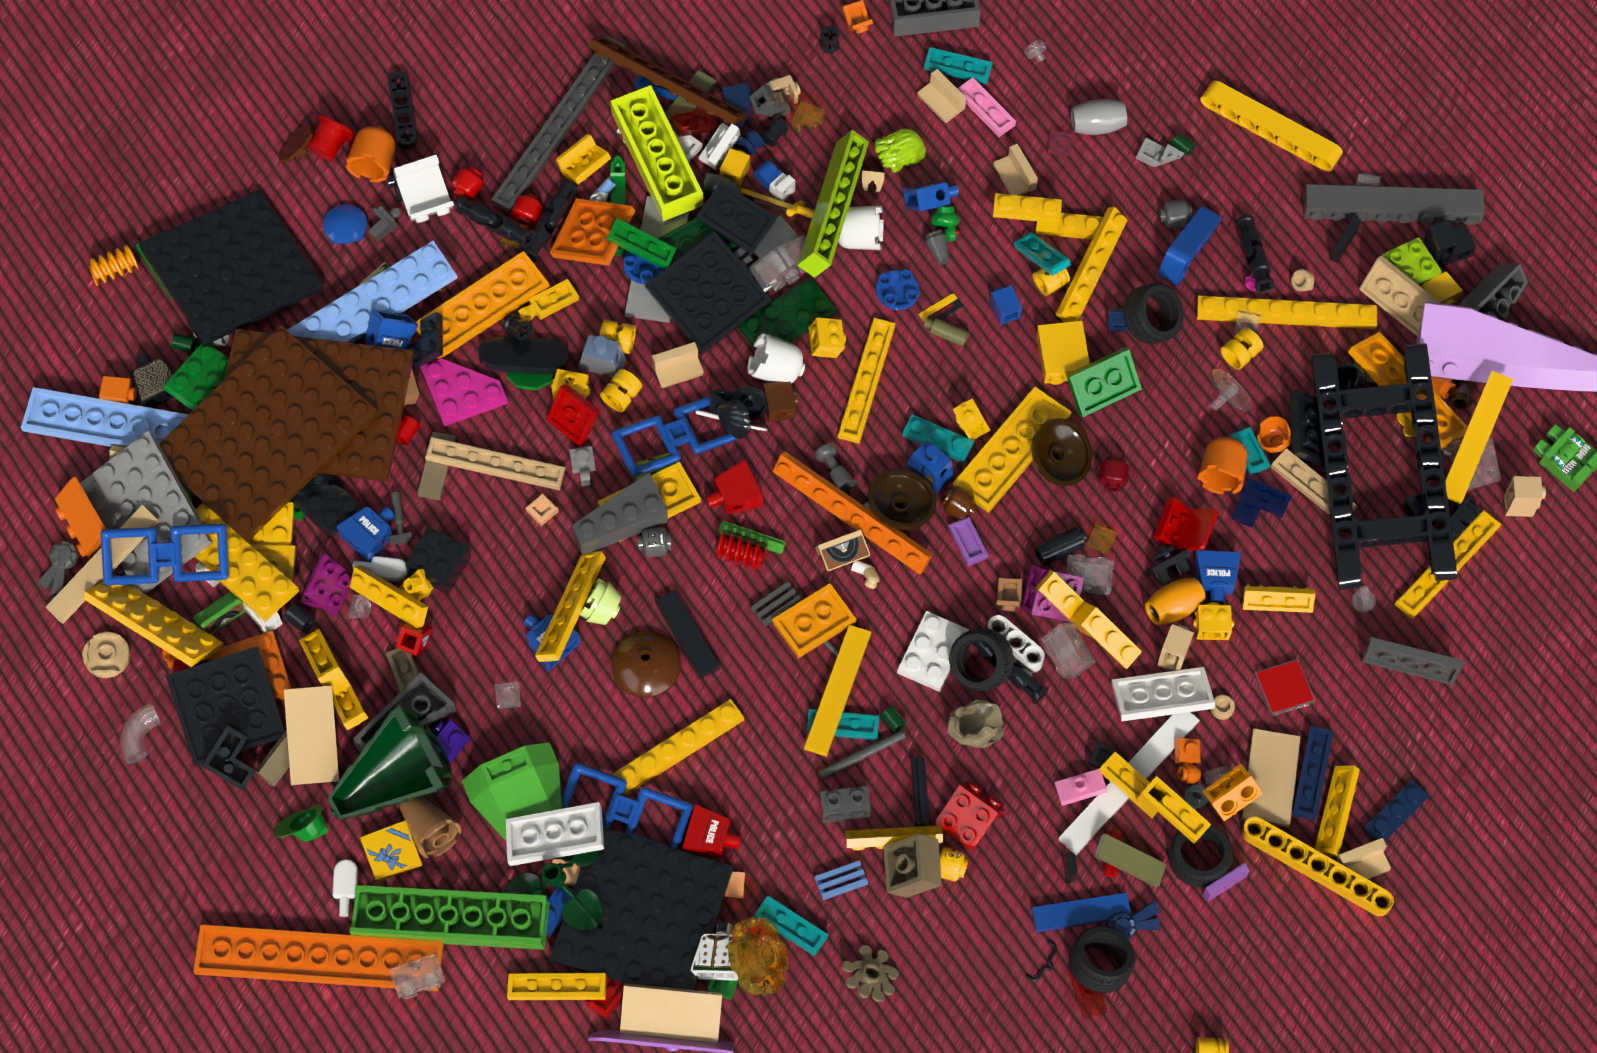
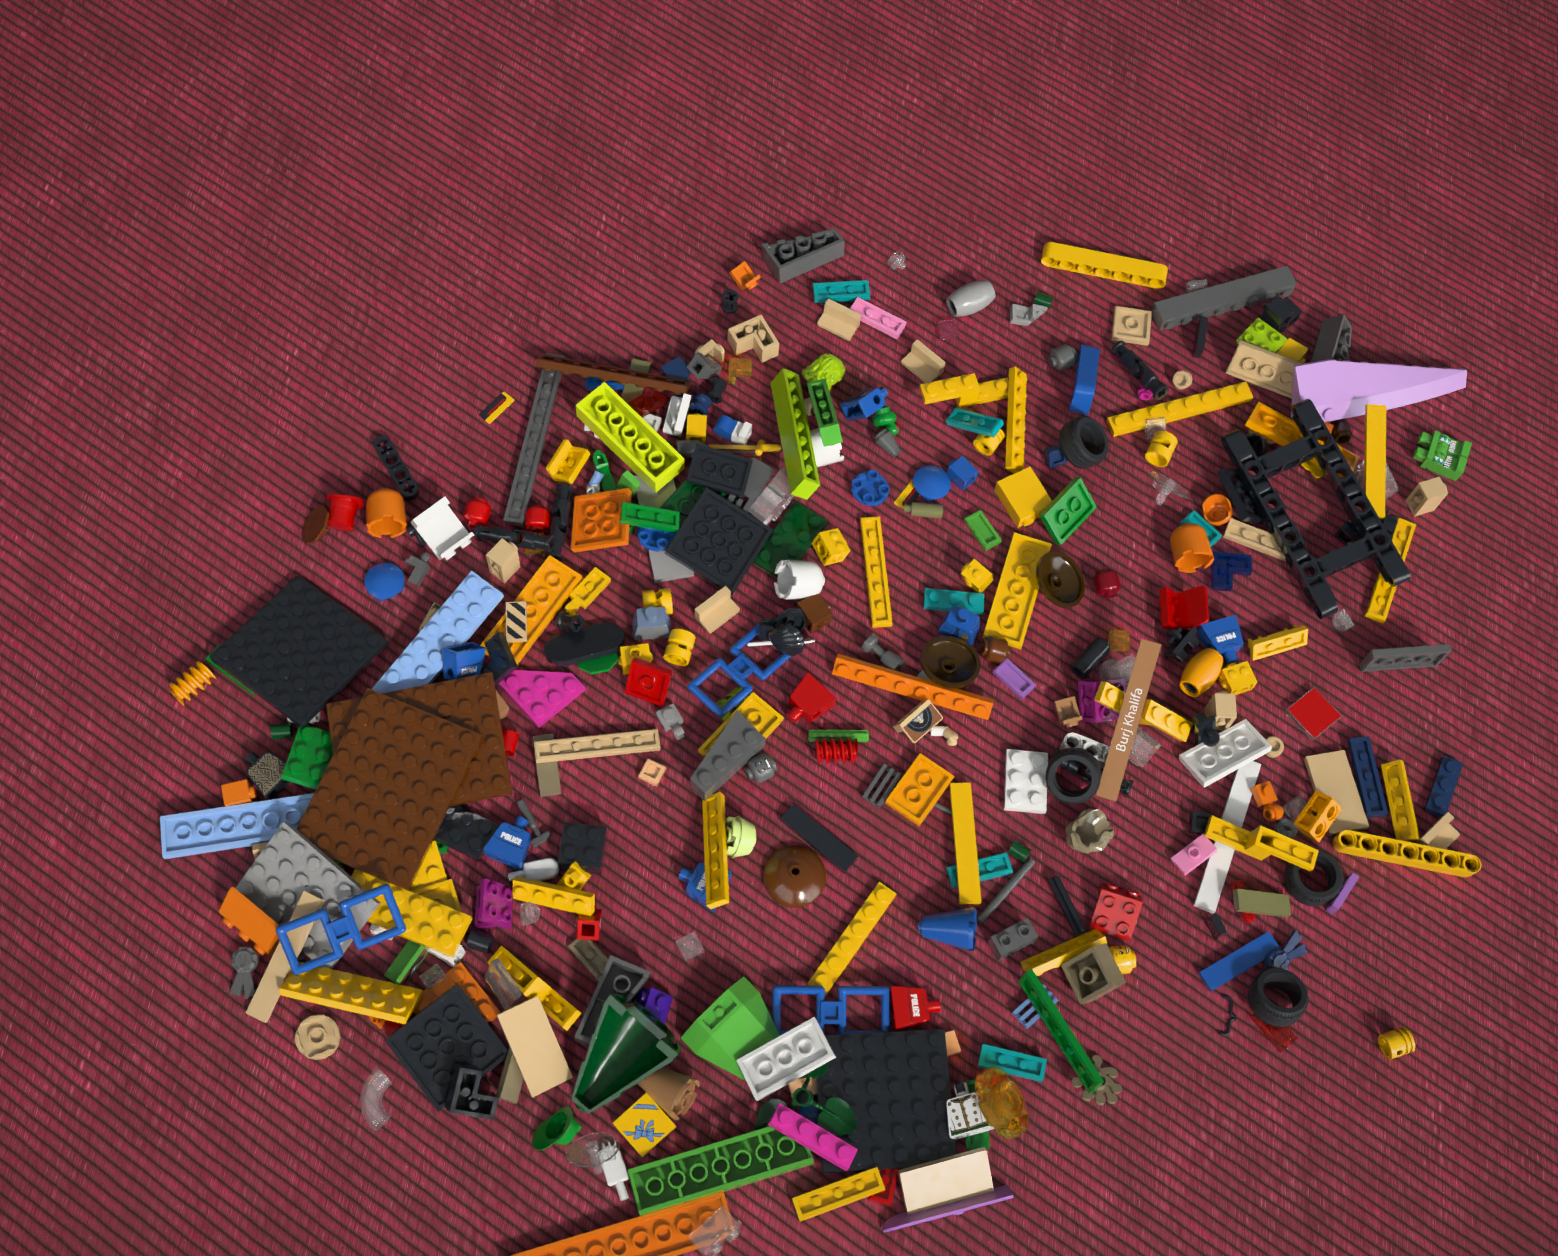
camera: 25 degrees left, 0 degrees up
(239, 635) = (432, 976): none -> clear tile
(303, 663) = (502, 984): none -> clear tile
(330, 856) = (593, 1150): none -> clear shield
(461, 309) = (516, 621): none -> tan tile
(473, 241) = (503, 560): none -> tan brick
(533, 78) = (496, 407): none -> sticker
(550, 918) = (812, 1137): none -> dark pink plate
(635, 200) = (628, 481): none -> bright green tile
(786, 770) = (951, 928): none -> blue cone
(836, 84) = (756, 335): none -> tan brick
(851, 910) = (1060, 1031): none -> green tile
(872, 190) = (824, 412): none -> bright green brick
(968, 305) = (931, 482): none -> blue dish
(1003, 374) = (982, 530): none -> bright green tile
(1064, 621) = (1128, 720): none -> medium nougat tile
(1148, 661) = (1205, 730): none -> black hips
(1273, 203) = (1131, 325): none -> tan tile

